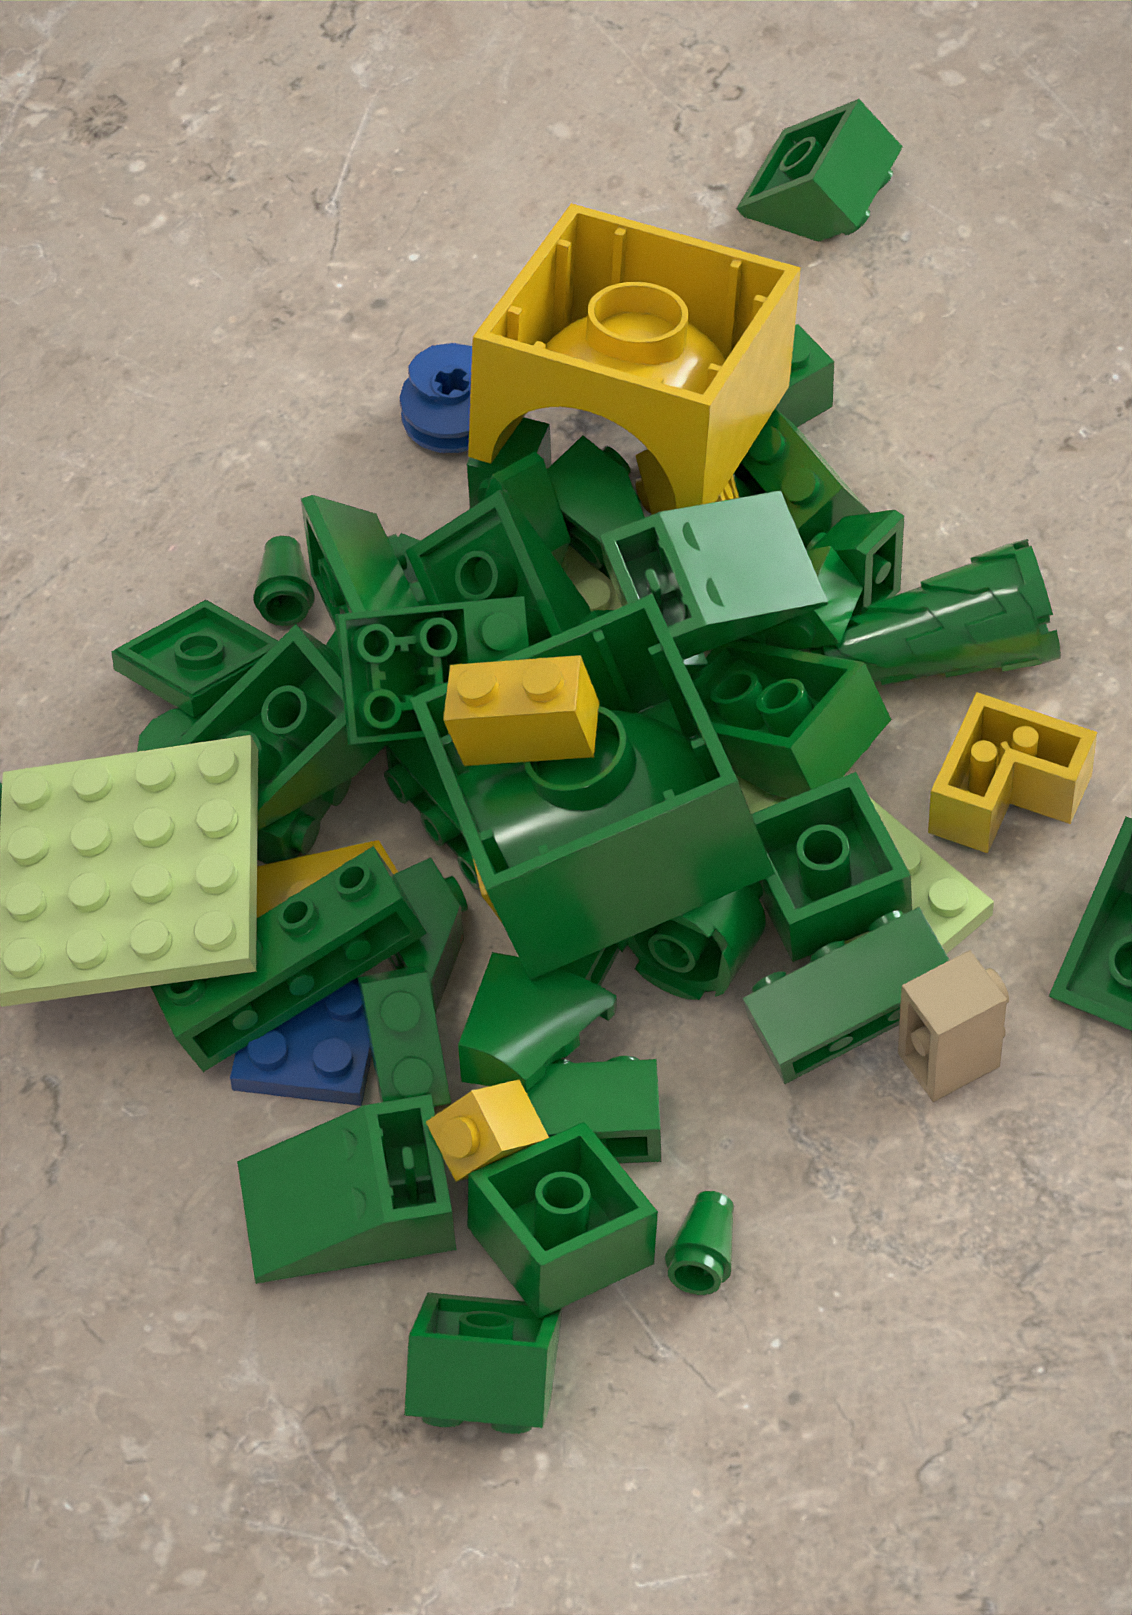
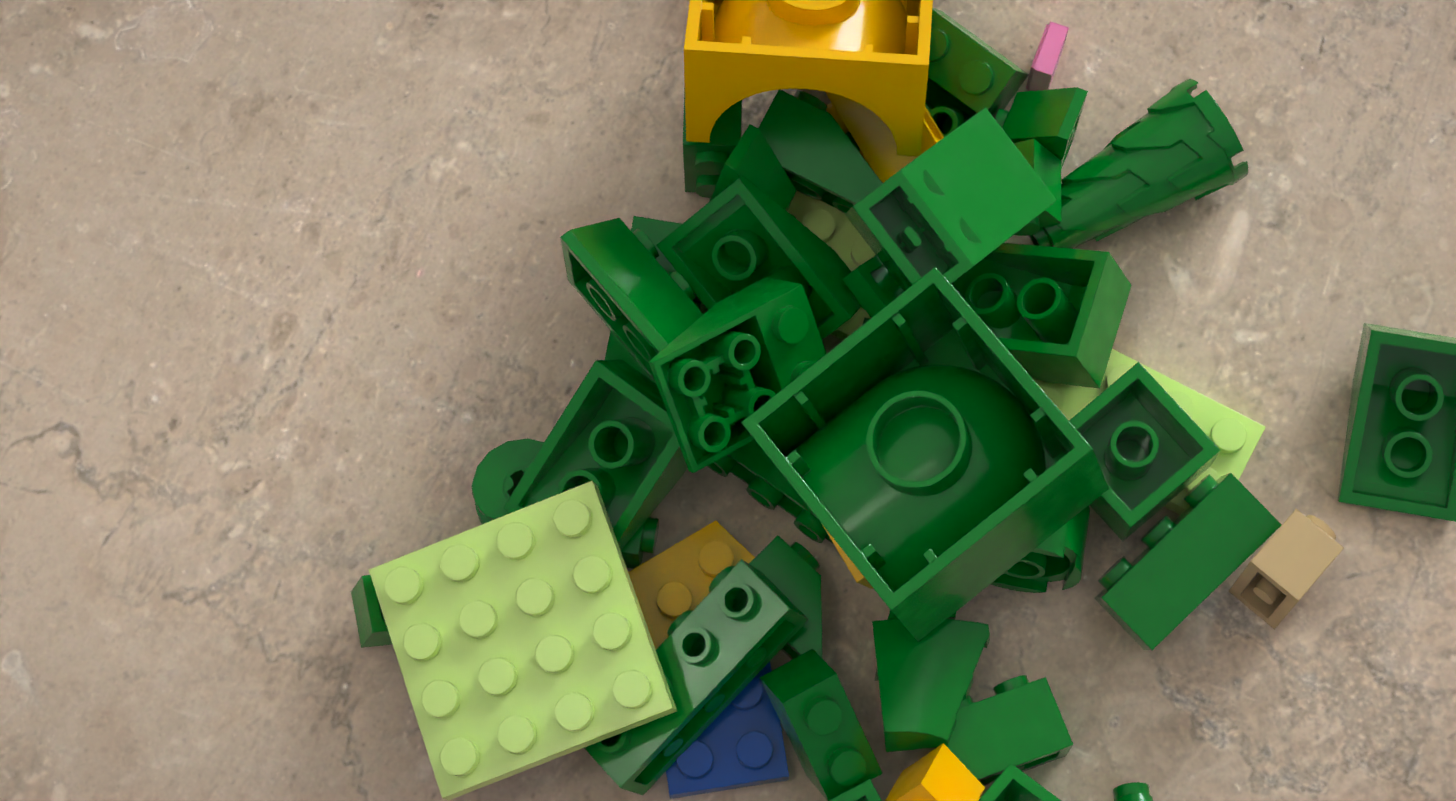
camera: 20 degrees left, 15 degrees up
(193, 656) = (494, 388): green tile -> none
(283, 583) = (537, 286): green cone -> none
(438, 398) = (600, 57): blue piece -> none
(521, 710) = (863, 423): yellow brick -> none
(899, 491) = (1047, 57): none -> bright pink tile
(1008, 759) = (1232, 293): yellow brick -> none

